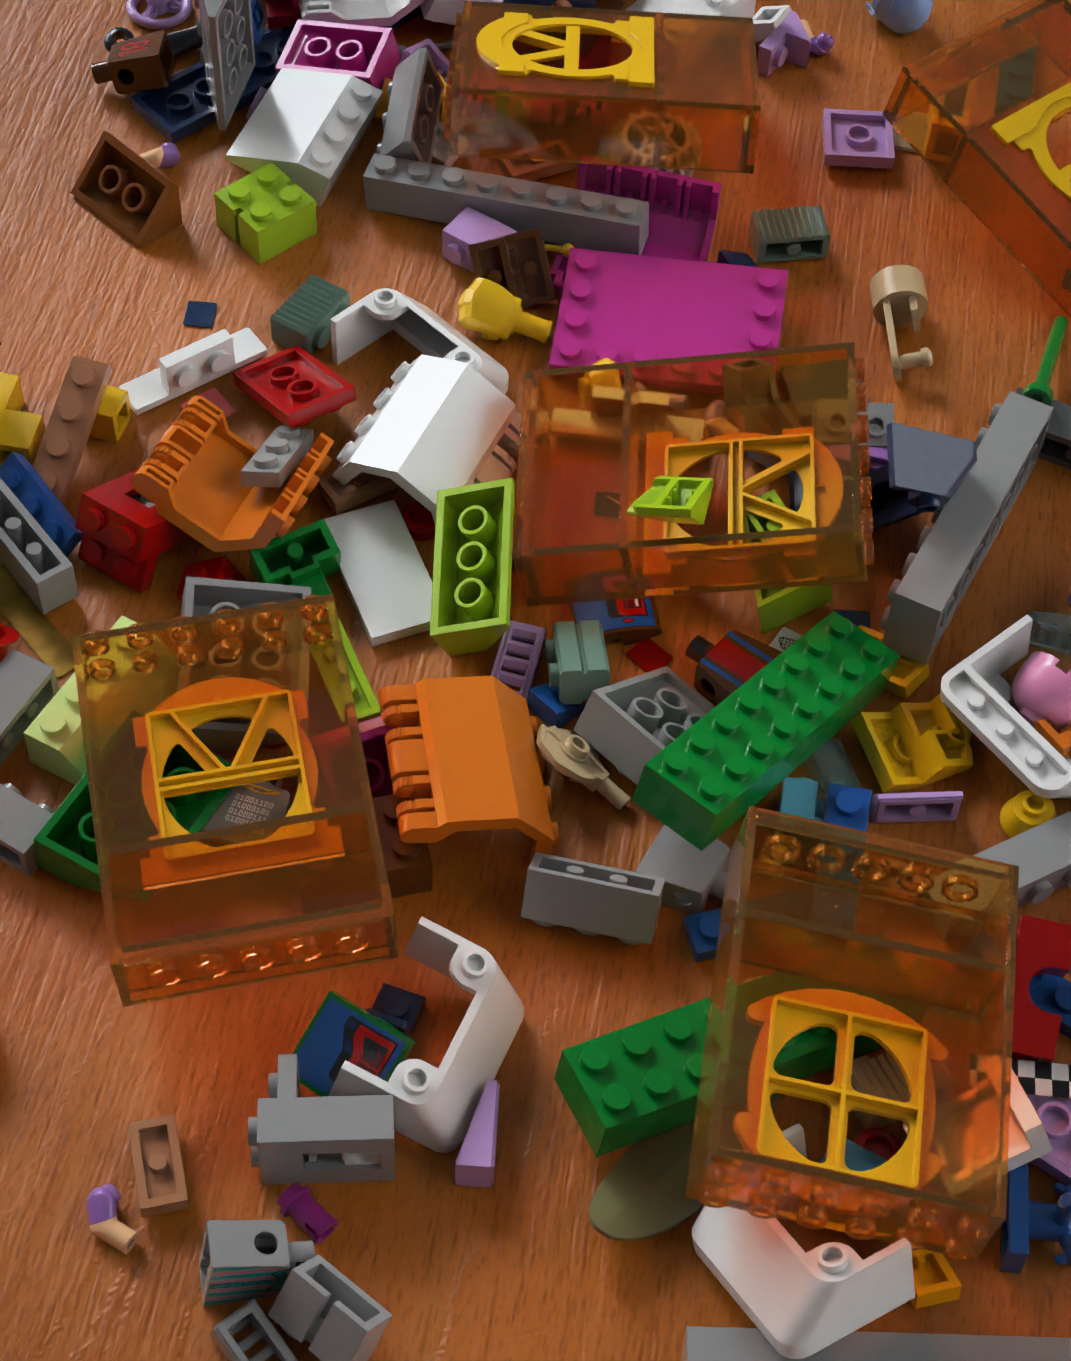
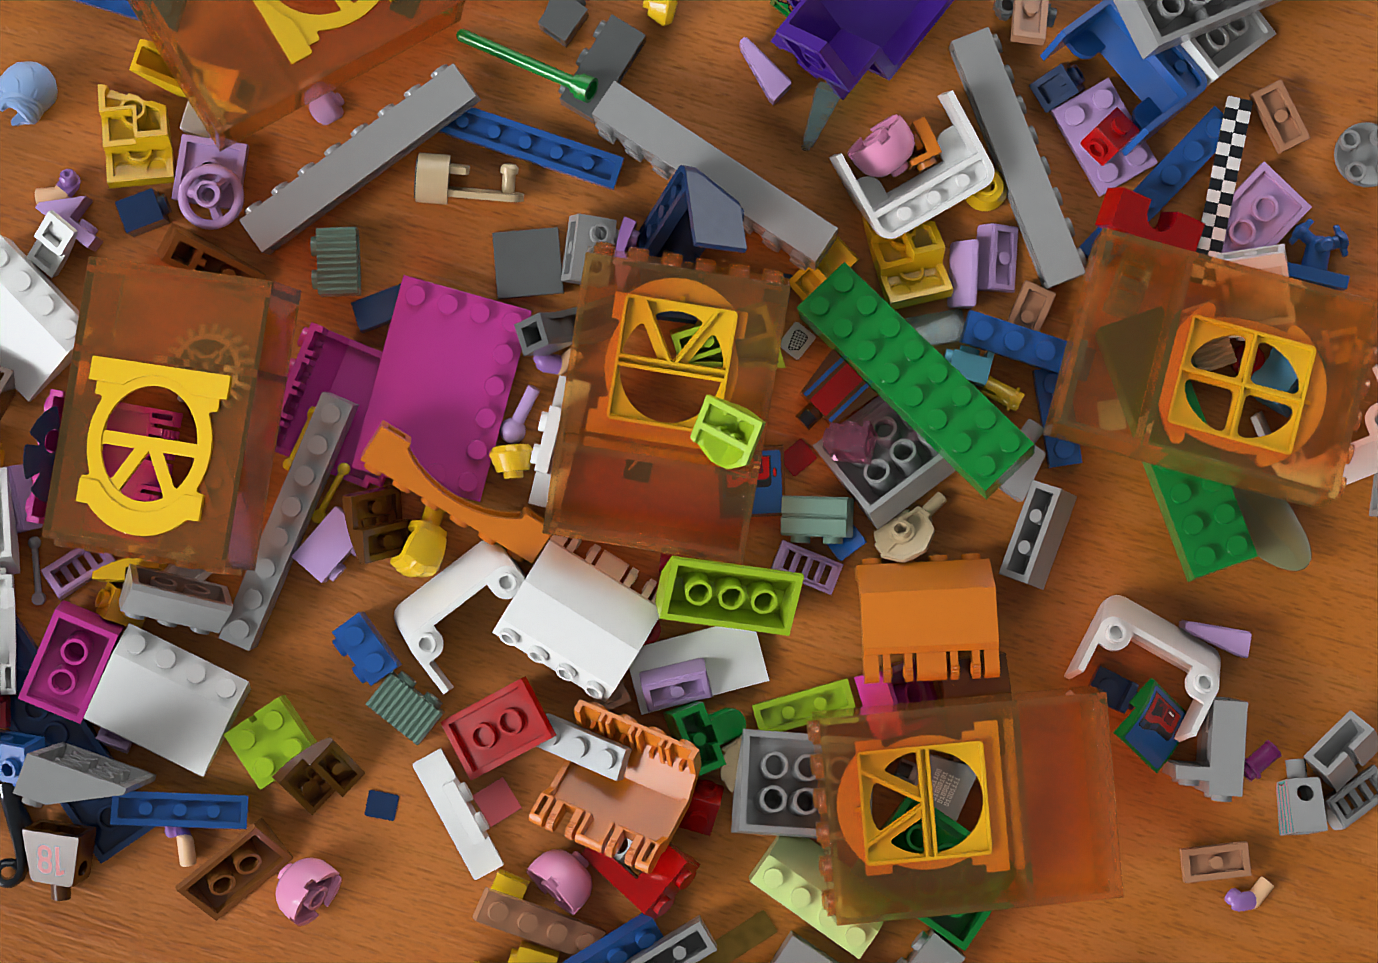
camera: 85 degrees left, 35 degrees up
(103, 245) = (305, 887): none -> bright pink cylinder
(118, 448) = (563, 878): none -> bright pink cylinder
(189, 143) = (180, 810): none -> blue plate
(231, 242) = (318, 773): none -> reddish brown slope
(359, 544) = (675, 684): none -> lavender slope
(377, 268) = (366, 649): none -> blue brick
(589, 263) = (516, 530): none -> orange arch
(679, 681) = (850, 442): none -> clear pink brick
(775, 129) = (189, 251): none -> dark orange slope
(804, 91) = (144, 212): none -> dark blue brick
(833, 127) = (198, 193): none -> lavender piece
(867, 85) = (135, 140): none -> yellow slope
(907, 238) = (359, 159): none -> light grey brick
(951, 224) = (327, 108): none -> lavender piece
(955, 836) = (997, 257): none -> lavender slope
(960, 365) = (537, 147): none -> blue plate

